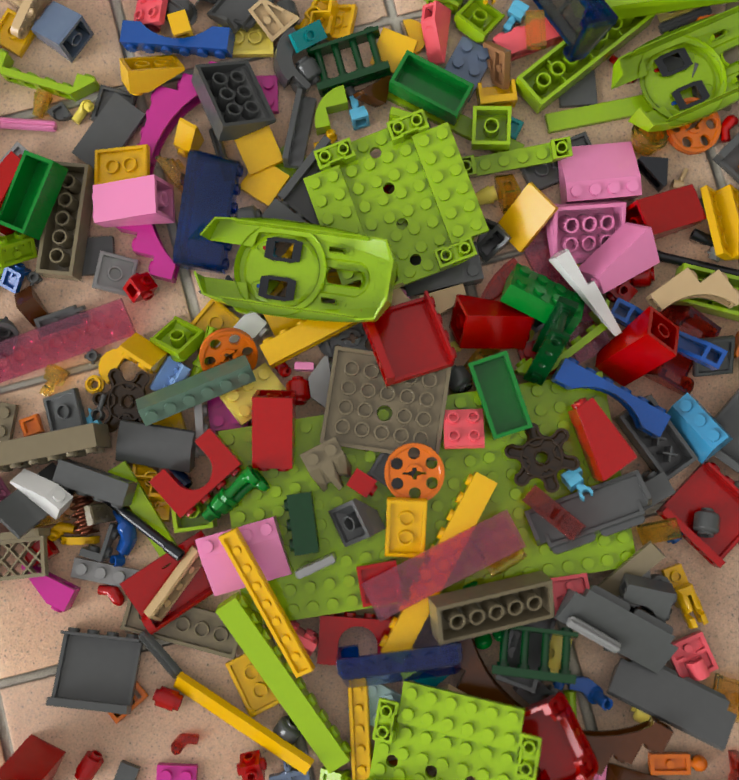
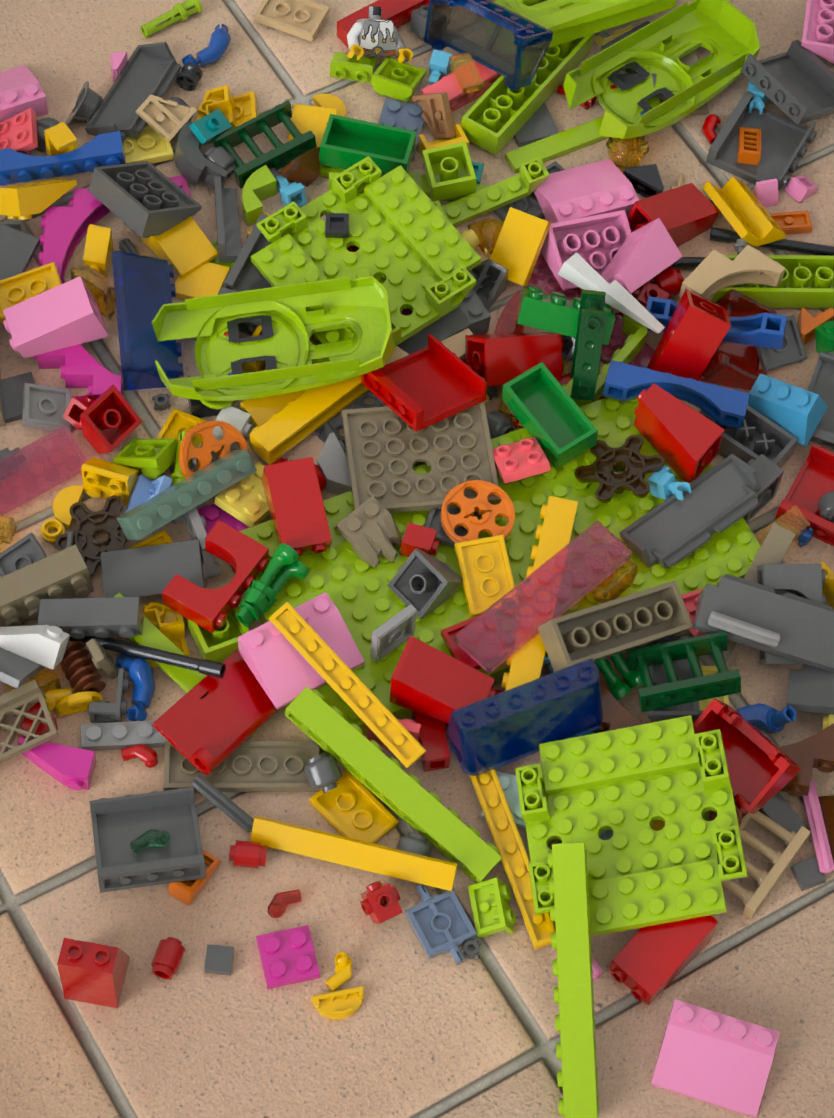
camera: 25 degrees left, 25 degrees down
(92, 356) = (41, 502): dark grey piece -> none
(97, 671) = (151, 838): none -> clear green arm
(155, 304) = (108, 421): none -> red slope
(174, 585) = (224, 707): tan brick -> none
(234, 656) = (322, 772): none -> dark grey head
(302, 523) = (360, 598): dark green brick -> none
(304, 366) = (308, 451): bright pink tile -> none
(341, 620) = (436, 682): none -> red slope
(379, 167) = (337, 225): none -> black tile
(435, 30) = (353, 93): coral slope -> none
(554, 513) = (654, 518): clear red slope -> none
(694, 134) = (678, 140): orange wedge -> none

